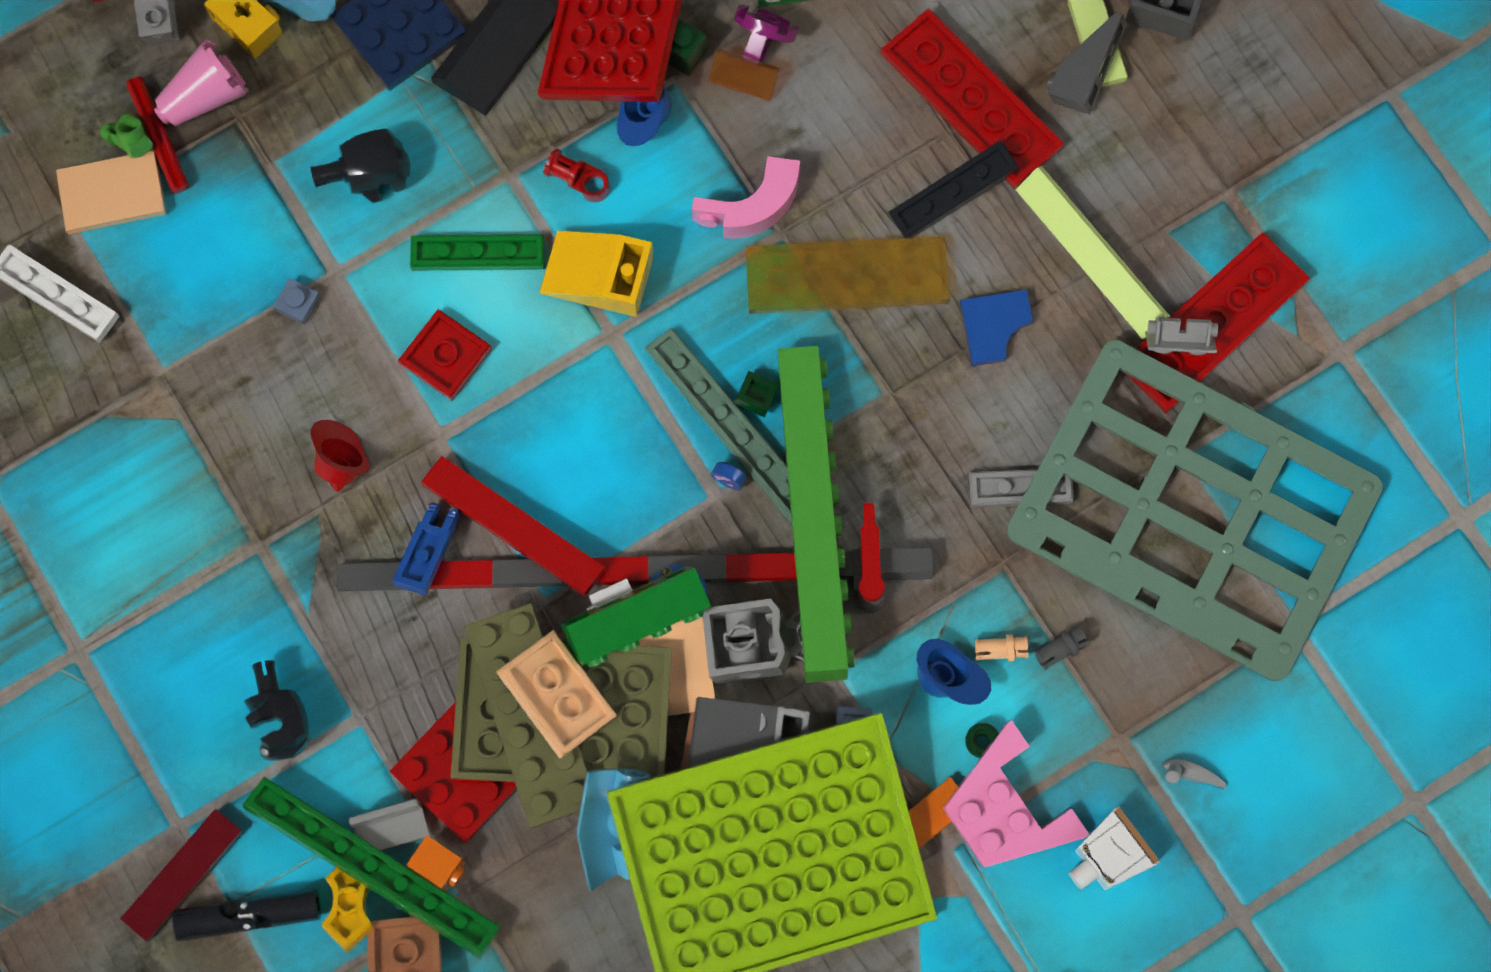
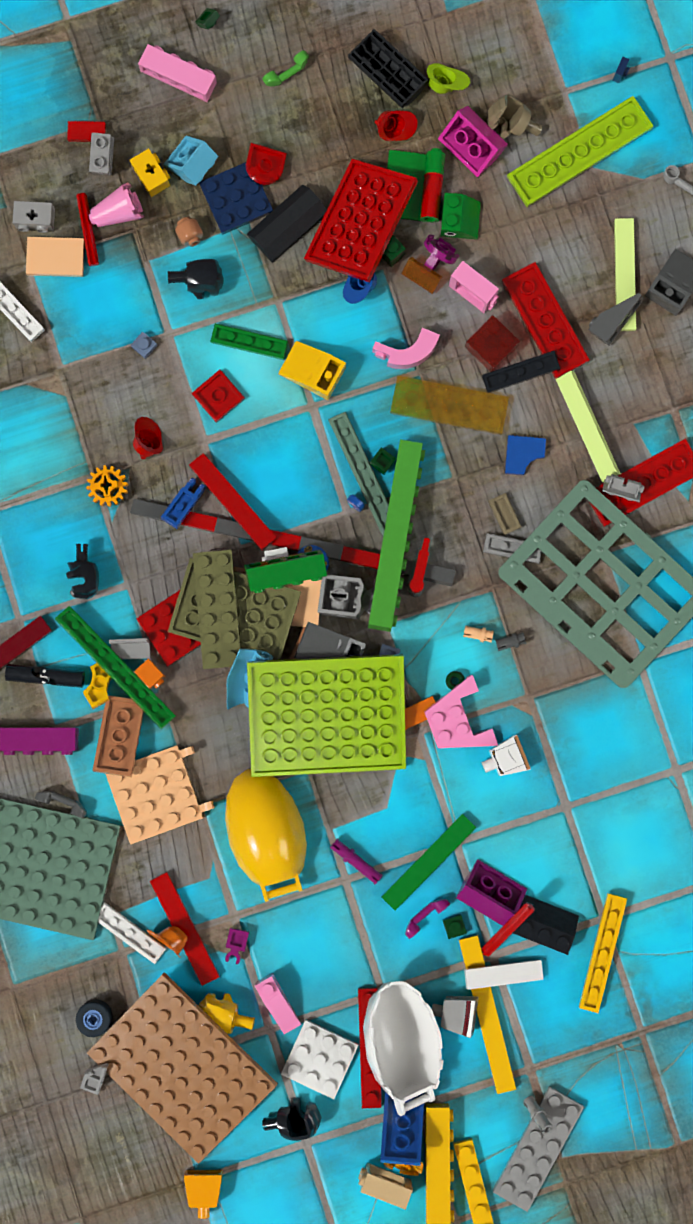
camera: 15 degrees right, 10 degrees up
(60, 133) = (25, 211): none -> light grey brick
(128, 135) = (70, 226): bright green plate -> none
(298, 548) = (115, 485): none -> light orange gear
(332, 96) = (189, 231): none -> nougat head
(556, 694) = (233, 602): light nougat tile -> none
(576, 174) = (314, 310): red connector -> none
(837, 71) = (474, 287): none -> bright pink window
(892, 156) = (492, 343): none -> clear red brick
(951, 674) = (447, 641): blue piece -> none
(990, 433) = (504, 514): none -> dark tan tile
(1192, 772) = (561, 724): light grey bar -> none

